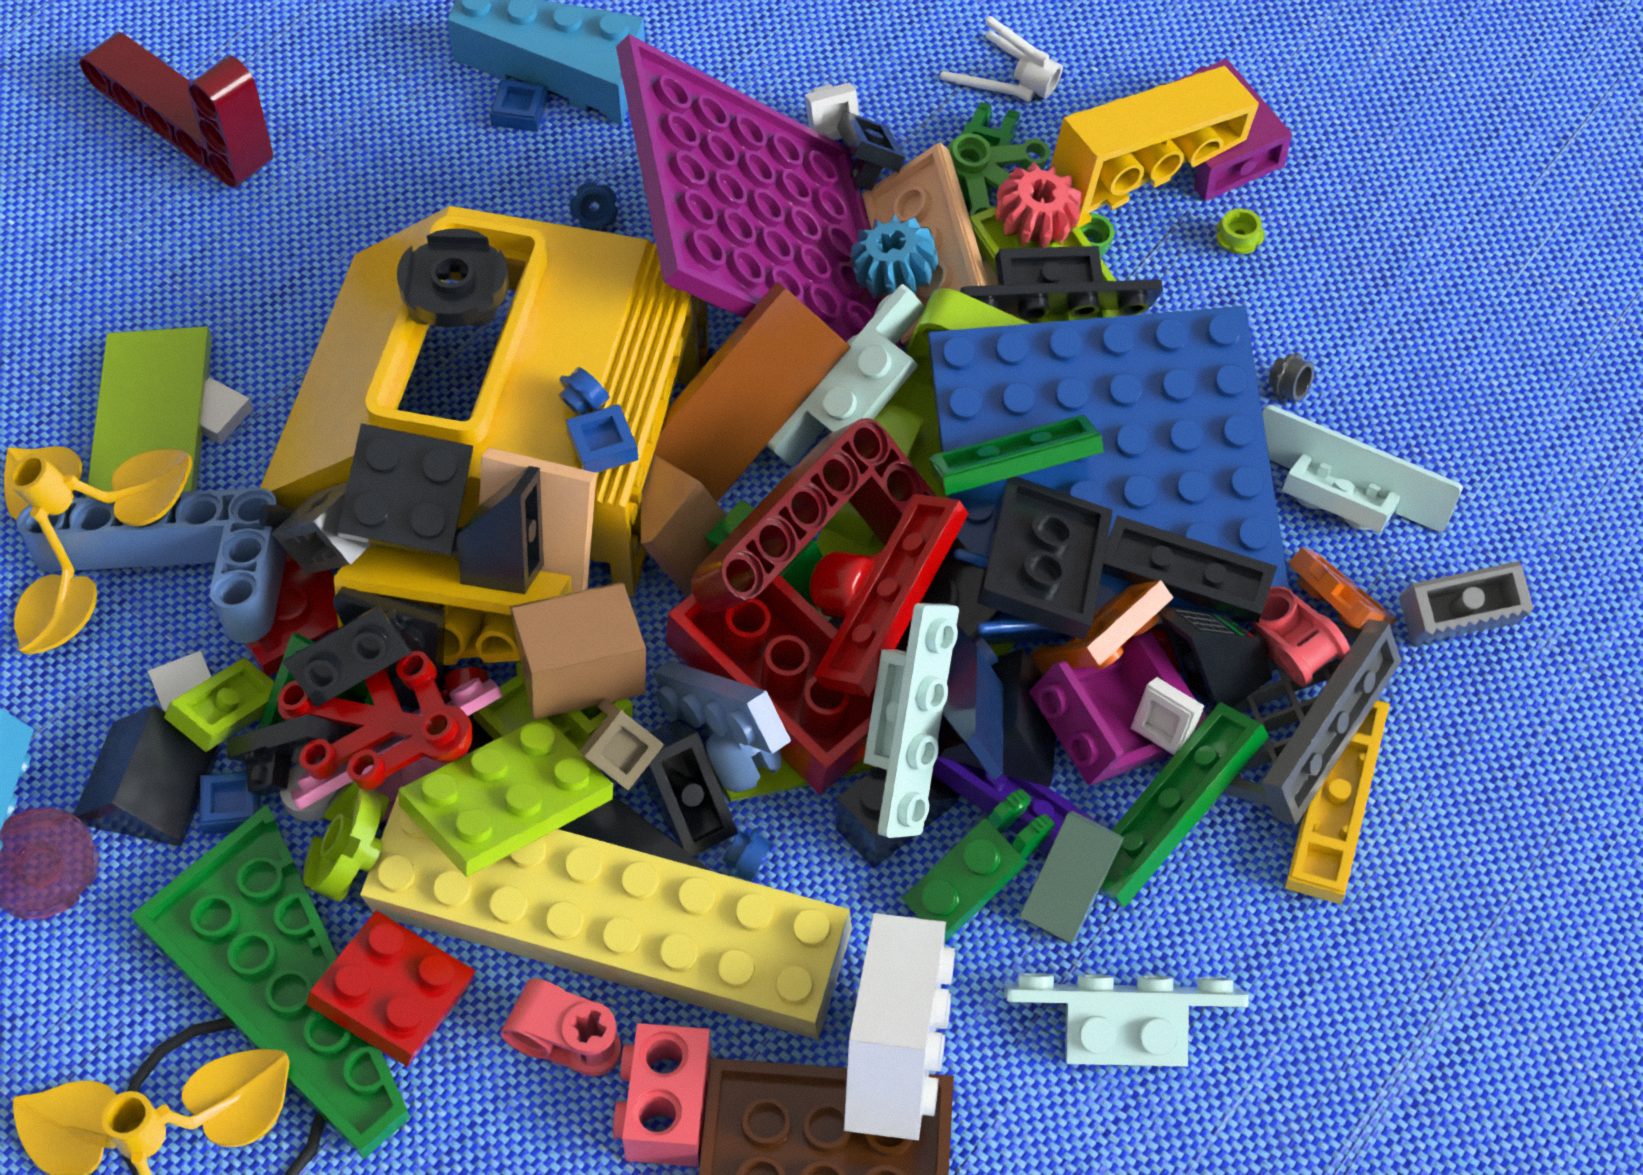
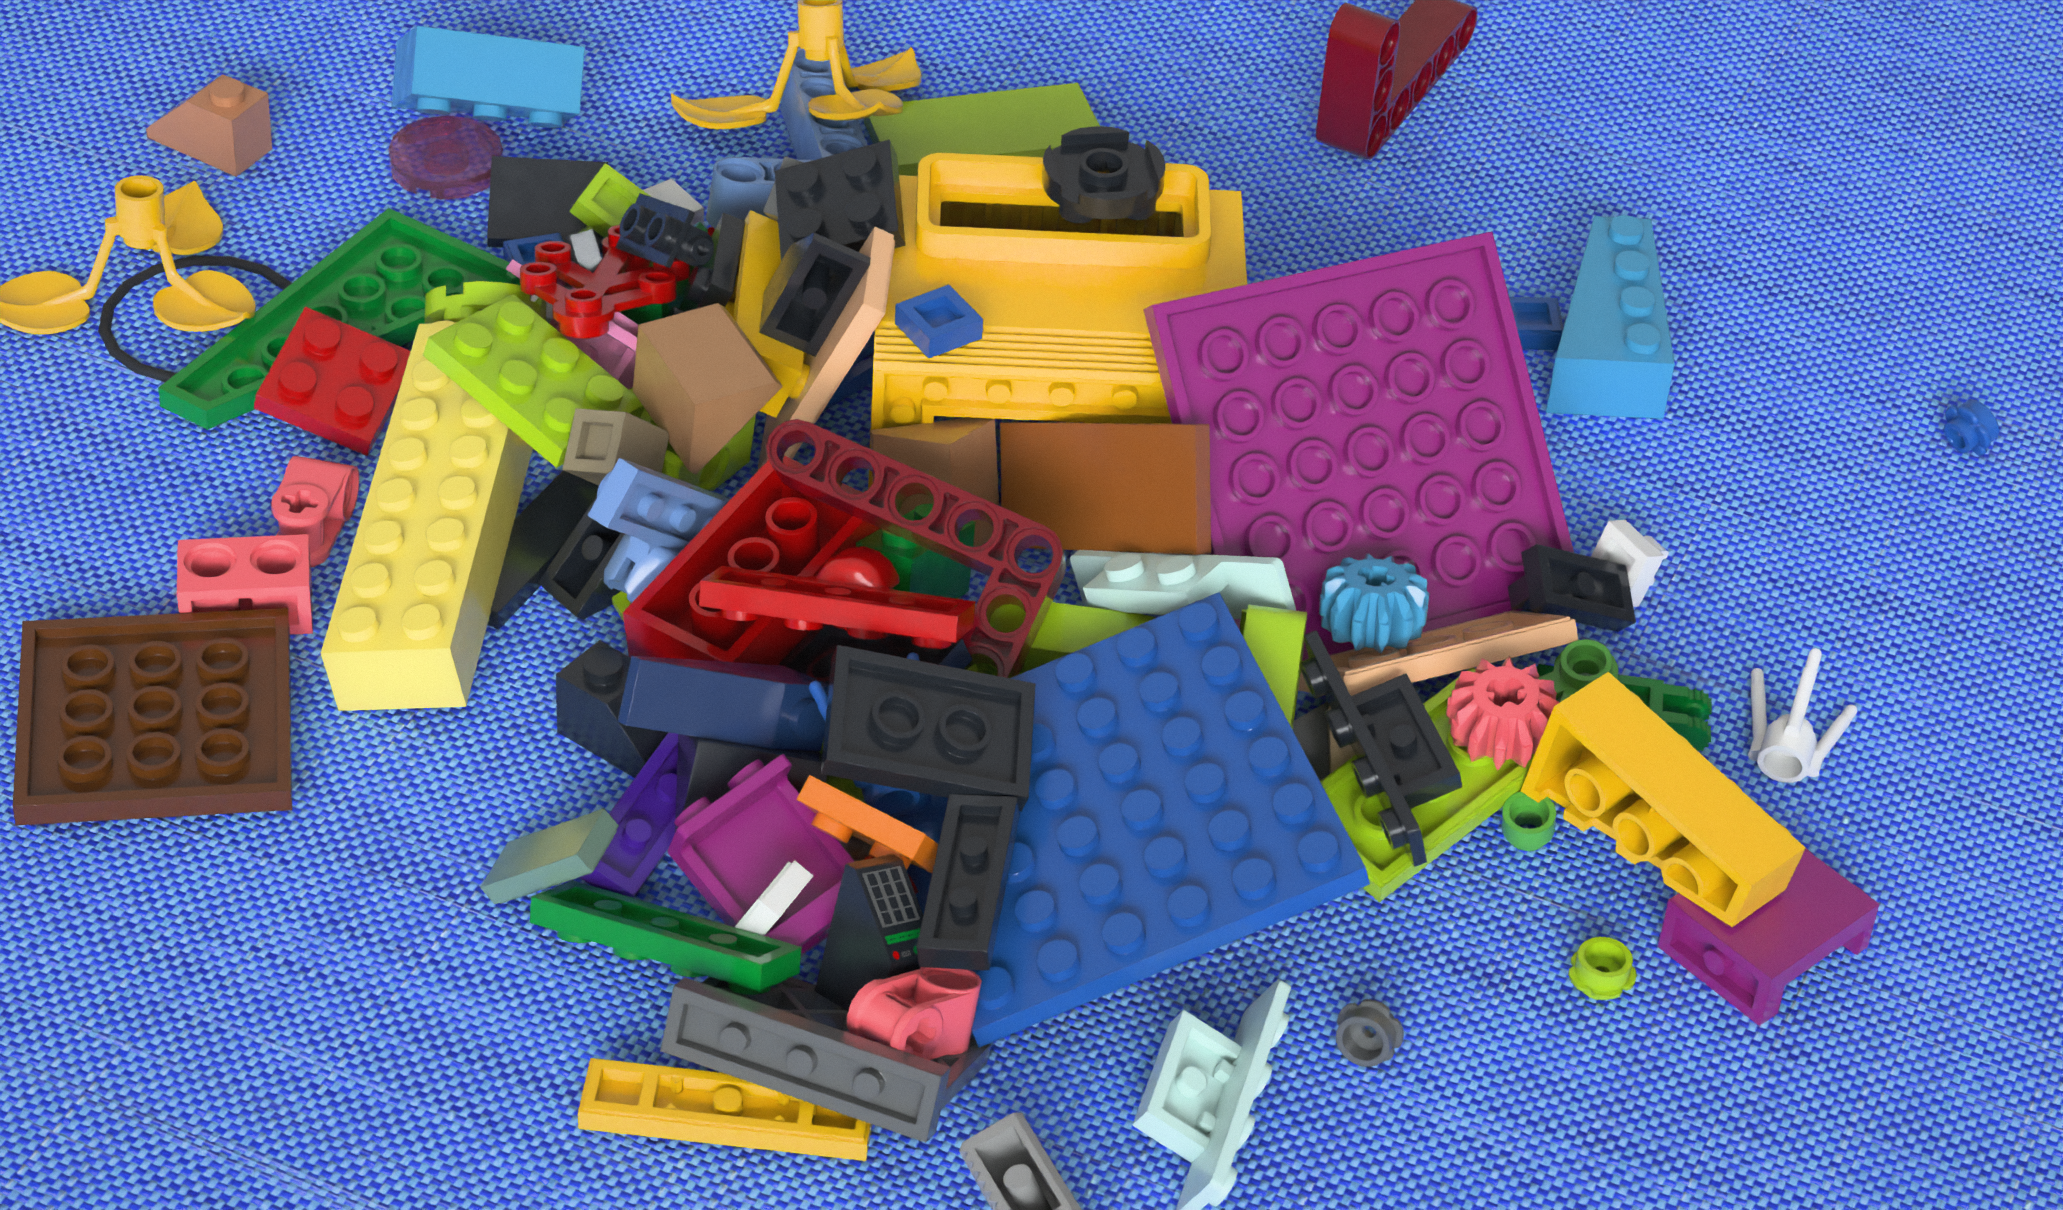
camera: 75 degrees right, 15 degrees down
(582, 392) = (1000, 301): blue plate -> none
(746, 854) = (539, 613): blue plate -> none
(896, 1025) = (315, 696): white brick -> none
(908, 717) = (677, 624): light aqua bracket -> none
(978, 866) = (549, 781): green hinge -> none
(1016, 454) = (1066, 687): green tile -> none
(1126, 1022) = (389, 933): light aqua bracket -> none
(1328, 583) = (1019, 1071): orange wing -> none

